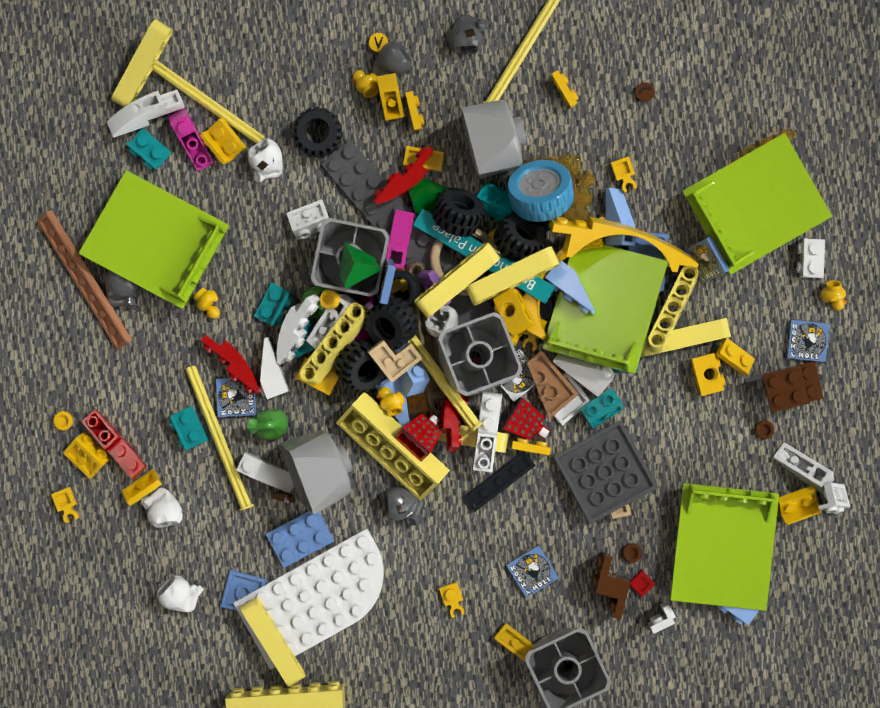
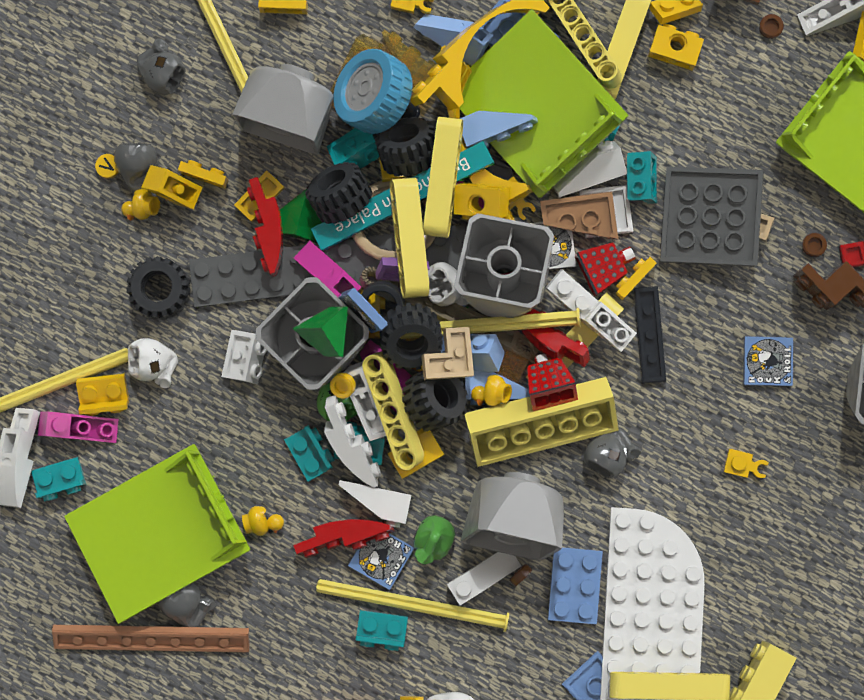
camera: 55 degrees left, 5 degrees down
(514, 641) = (832, 427): yellow plate -> none

